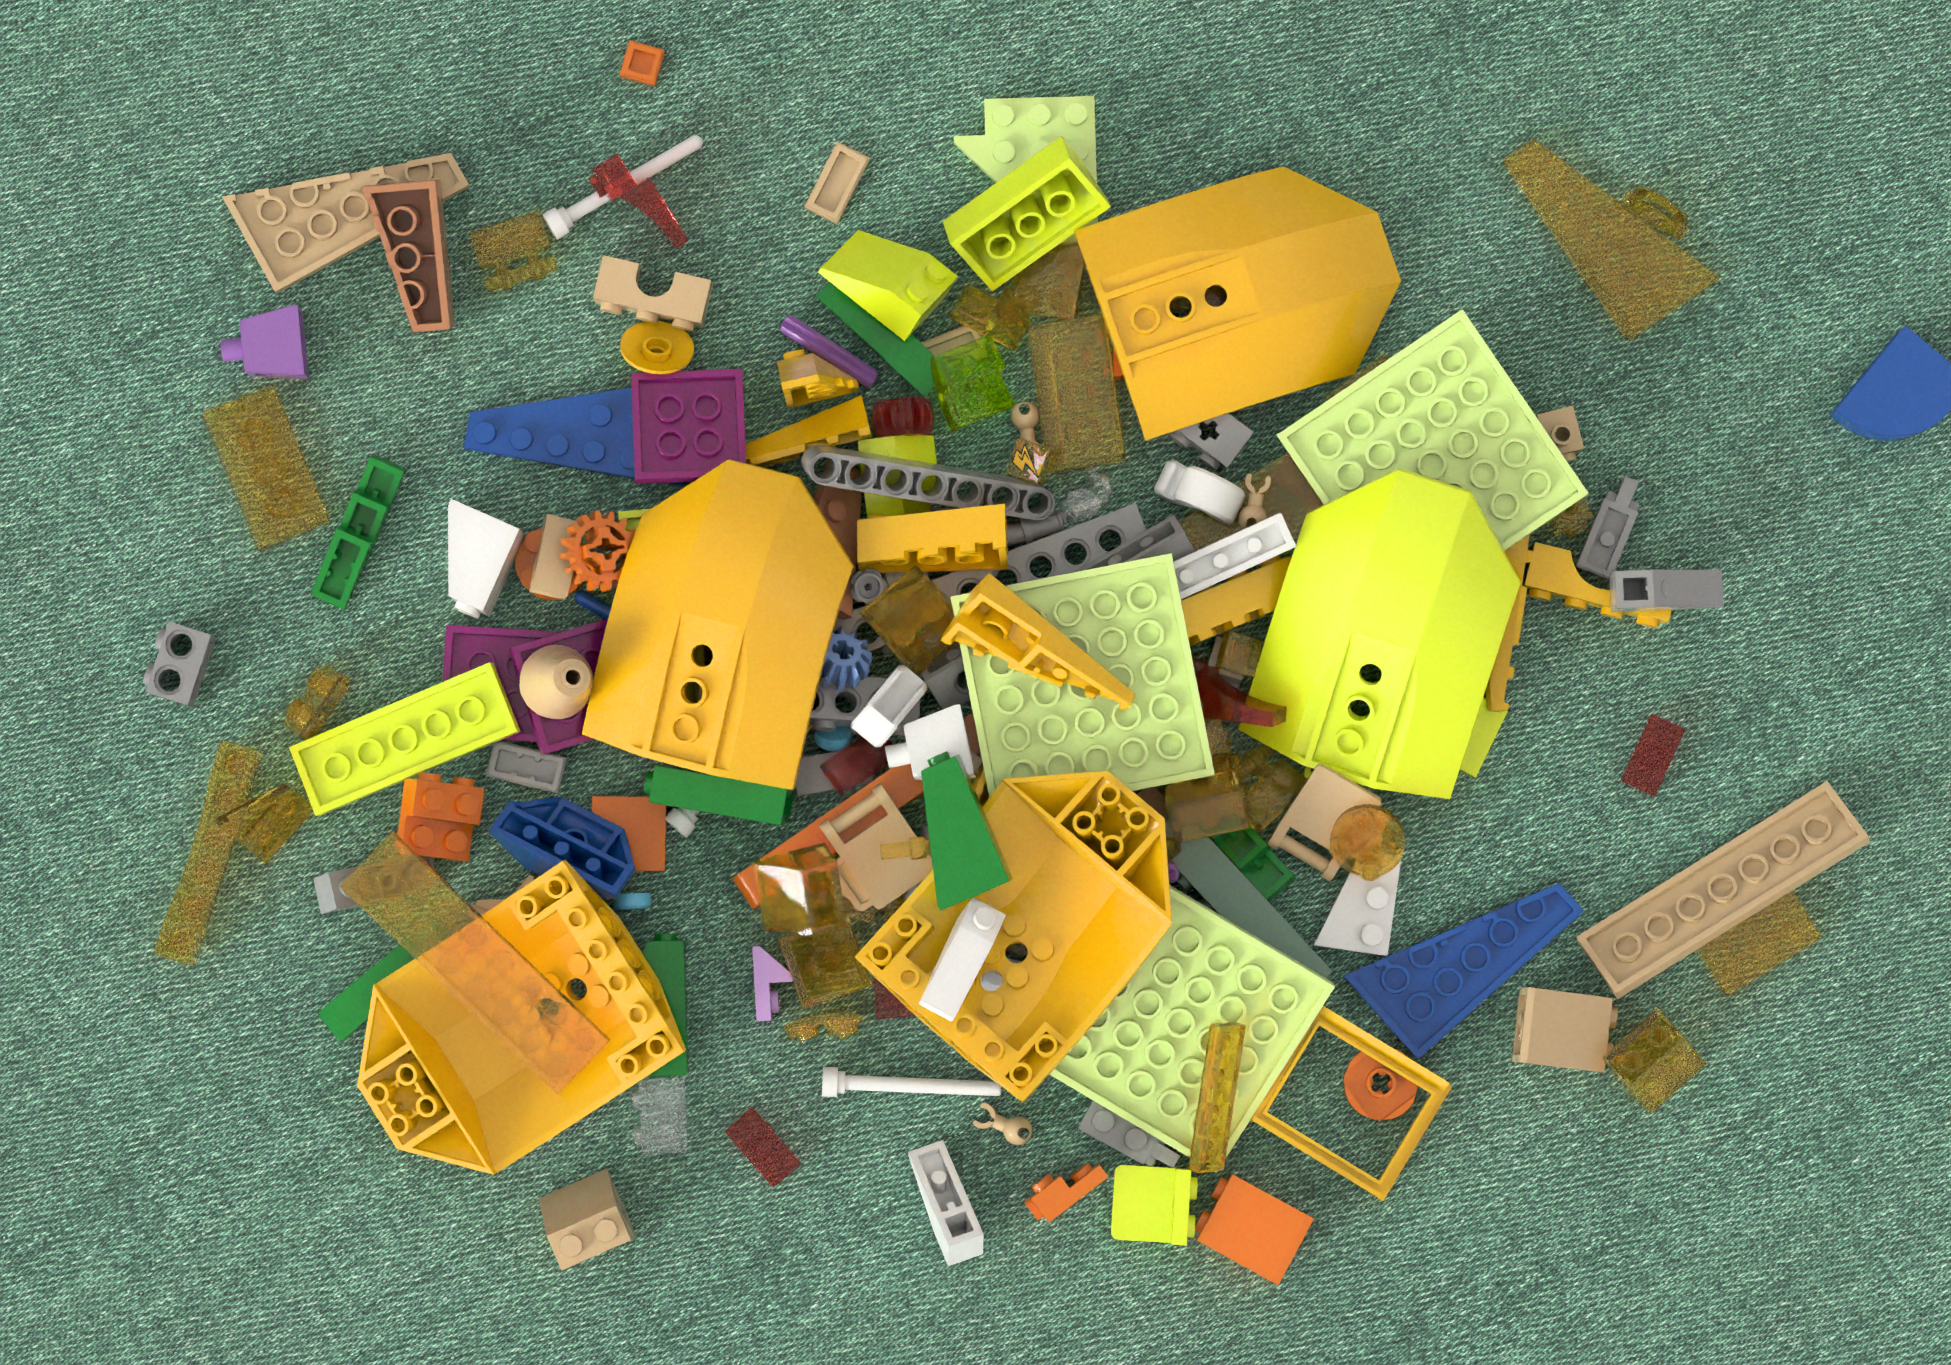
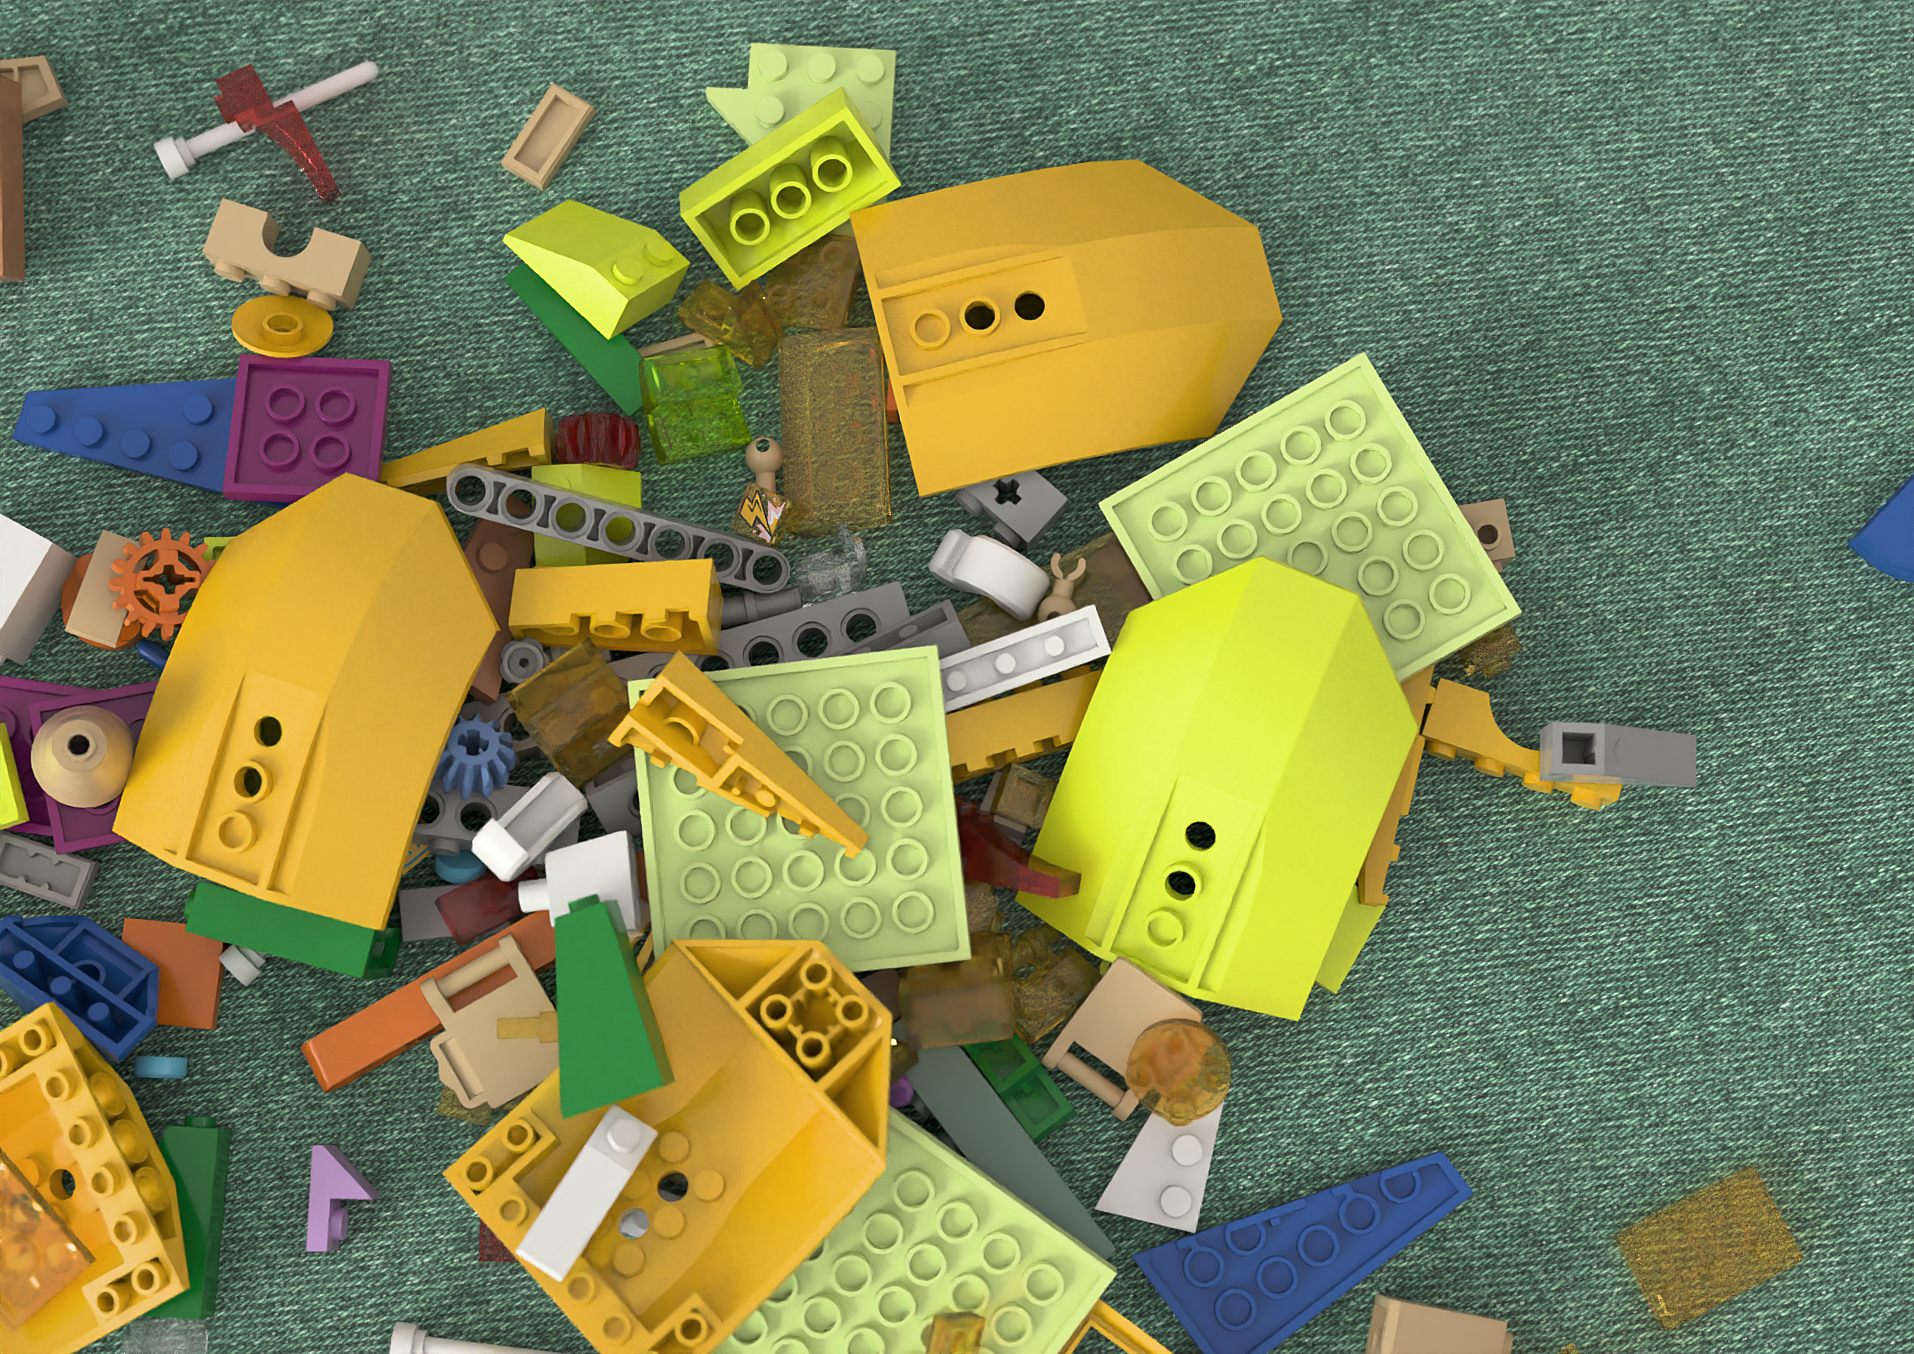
camera: 10 degrees right, 5 degrees down
(511, 241) = (113, 177): clear yellow plate -> none
(800, 891) = (382, 1074): clear yellow slope -> none
(812, 379) = (477, 384): yellow wedge -> none
(824, 965) = (403, 1178): clear yellow slope -> none
(828, 350) = (513, 351): medium lavender axle -> none
(835, 1023) = (415, 1262): clear yellow slope -> none
(1609, 531) = (1542, 673): light grey hinge -> none
(1618, 254) = (1576, 310): clear yellow wing -> none
(1652, 755) = (1582, 984): clear red plate -> none
(1674, 227) = (1624, 262): clear yellow helmet -> none
(1722, 889) = (1670, 1180): tan plate -> none

